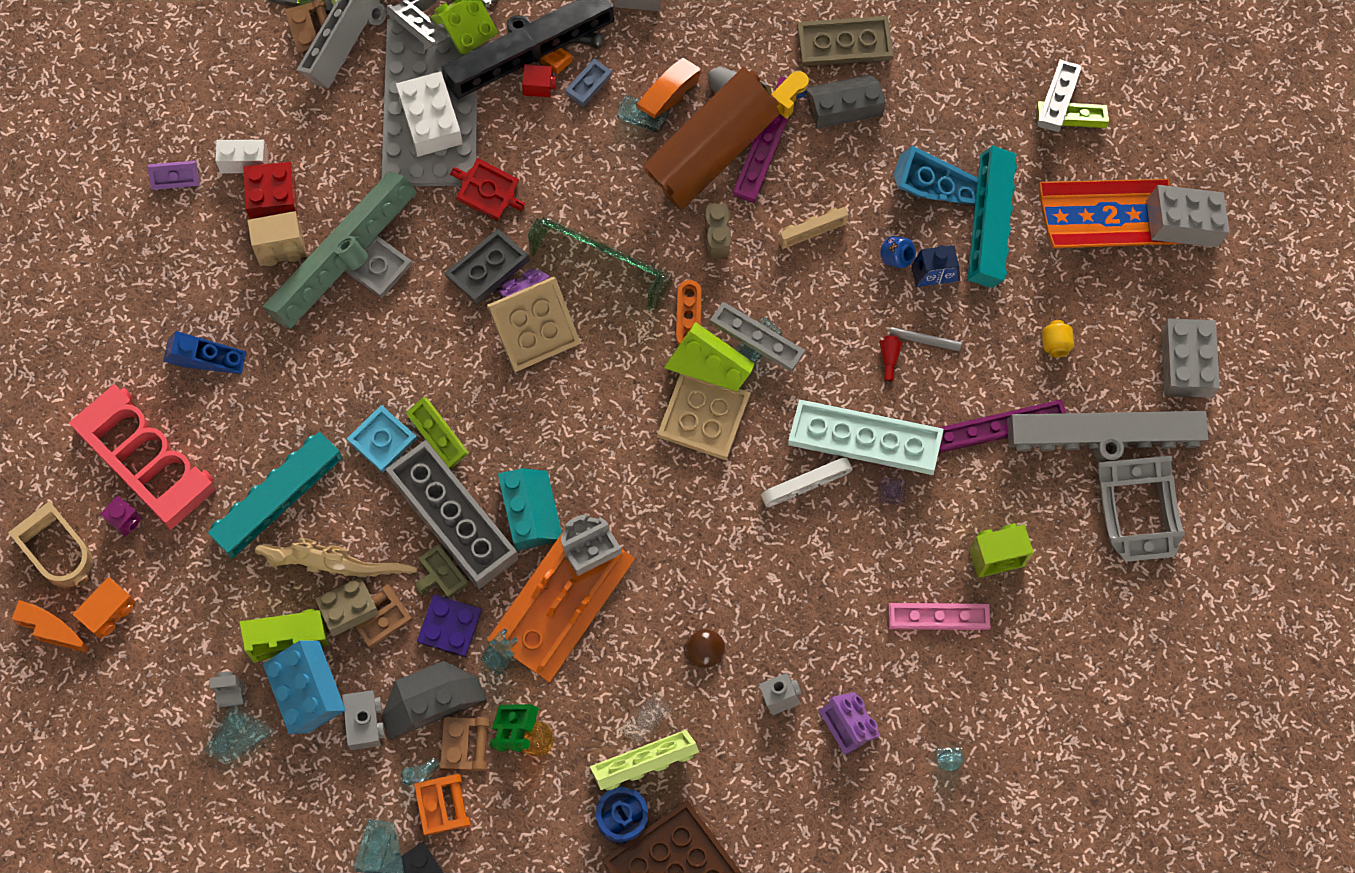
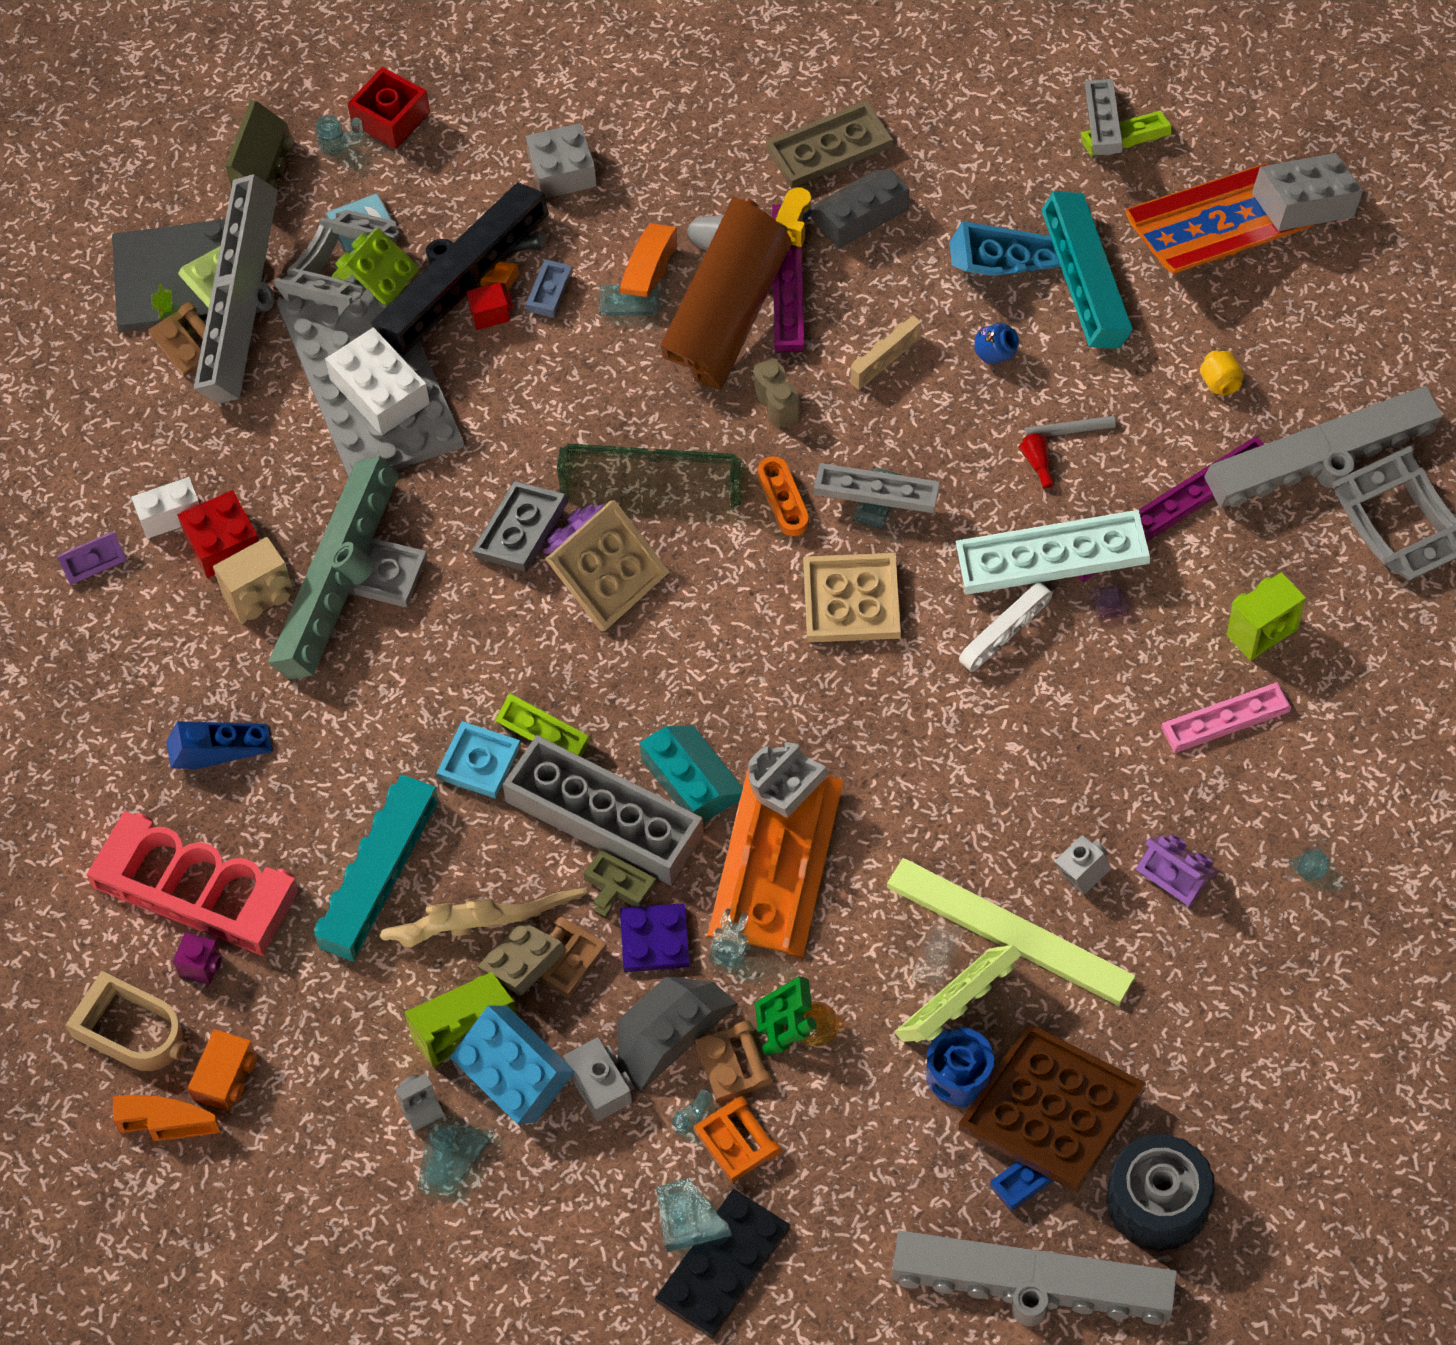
camera: 15 degrees left, 10 degrees down
(487, 189) = (482, 442): red plate -> none
(704, 648) = (970, 851): reddish brown hair -> none
(707, 723) = (1009, 929): none -> yellowish green tile
(709, 359) = (832, 532): lime wedge -> none
(938, 265) = (1047, 342): dark blue torso -> none
(1190, 358) = (1380, 340): light grey brick -> none

